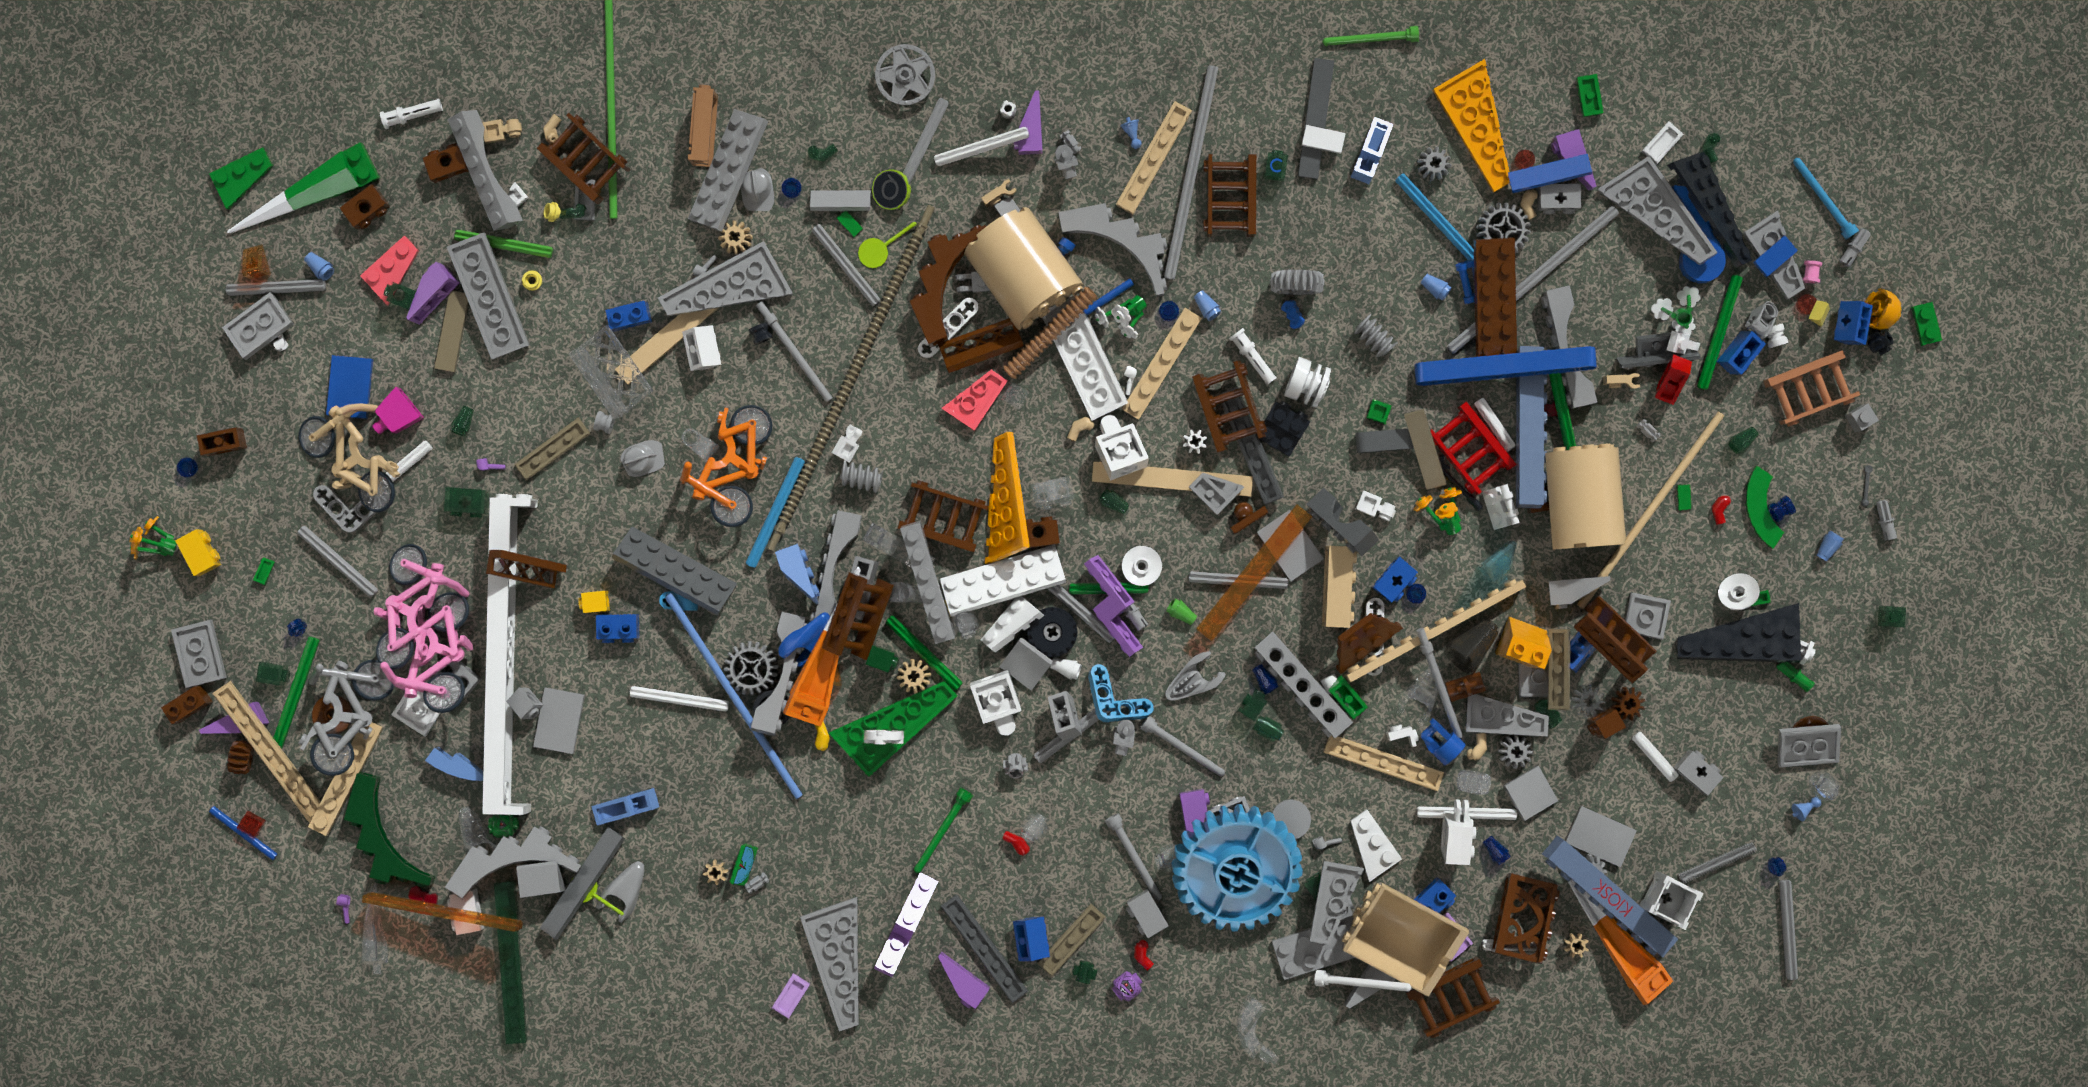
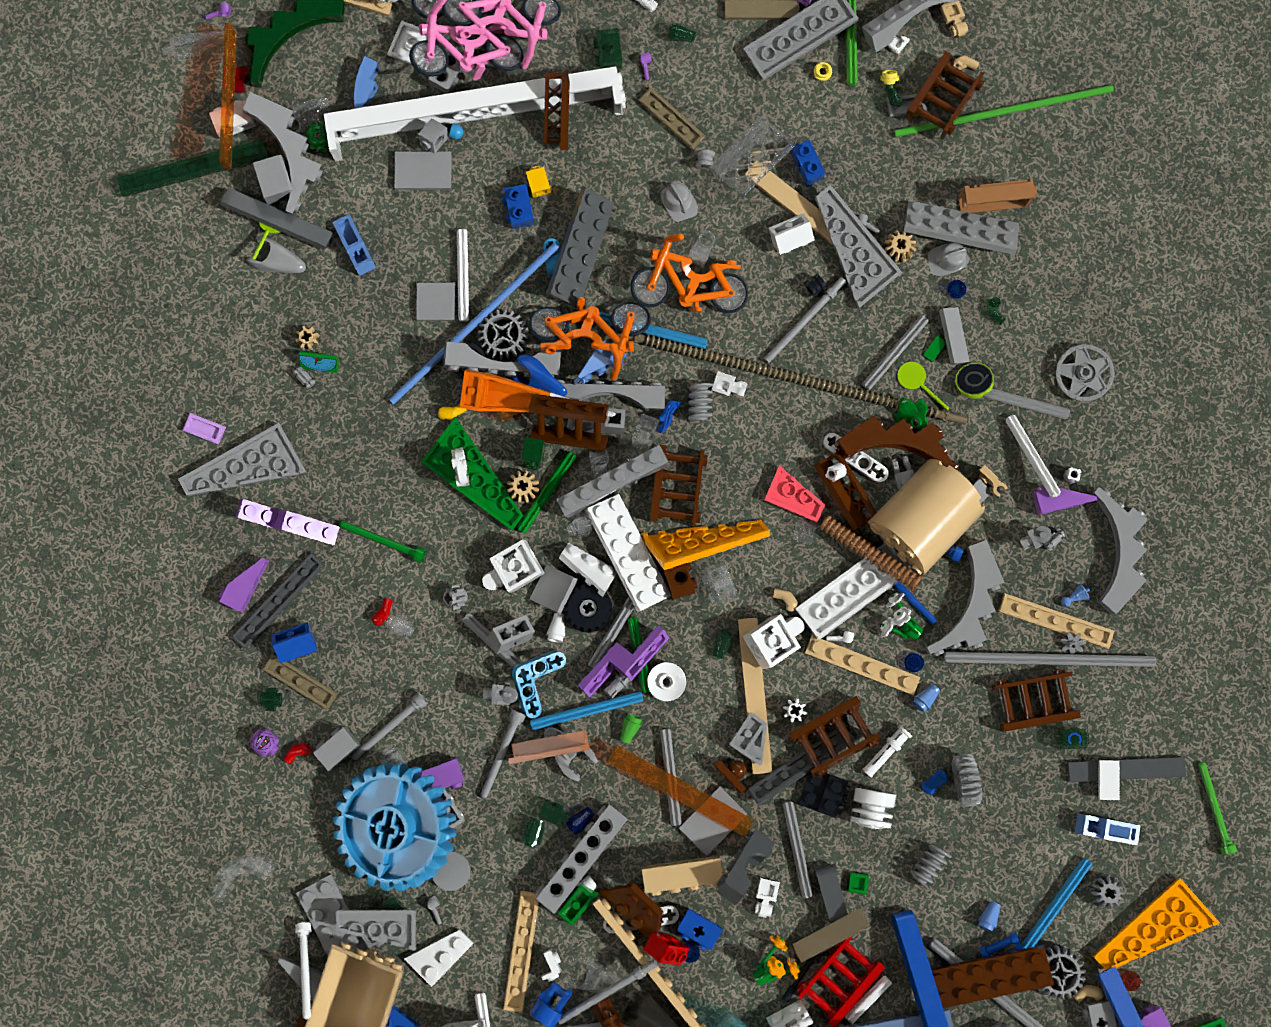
camera: 75 degrees right, 5 degrees down
(524, 678) = (456, 131): none -> dark azure hinge
(702, 732) = (435, 302): none -> light grey tile
(760, 536) = (627, 319): none -> orange piece
(868, 513) = (667, 415): none -> blue piece
(912, 260) = (910, 411): none -> green plate
(960, 351) = (836, 472): none -> white hose
(1070, 67) = (1124, 525): none -> light grey arch
(1155, 652) = (586, 710): none -> dark azure axle
(1179, 145) = (1073, 643): none -> light grey plant
(1186, 697) = (549, 747): none -> nougat fence
(1334, 466) = (797, 849): none -> light grey axle
(1408, 616) = (666, 949): none -> red brick

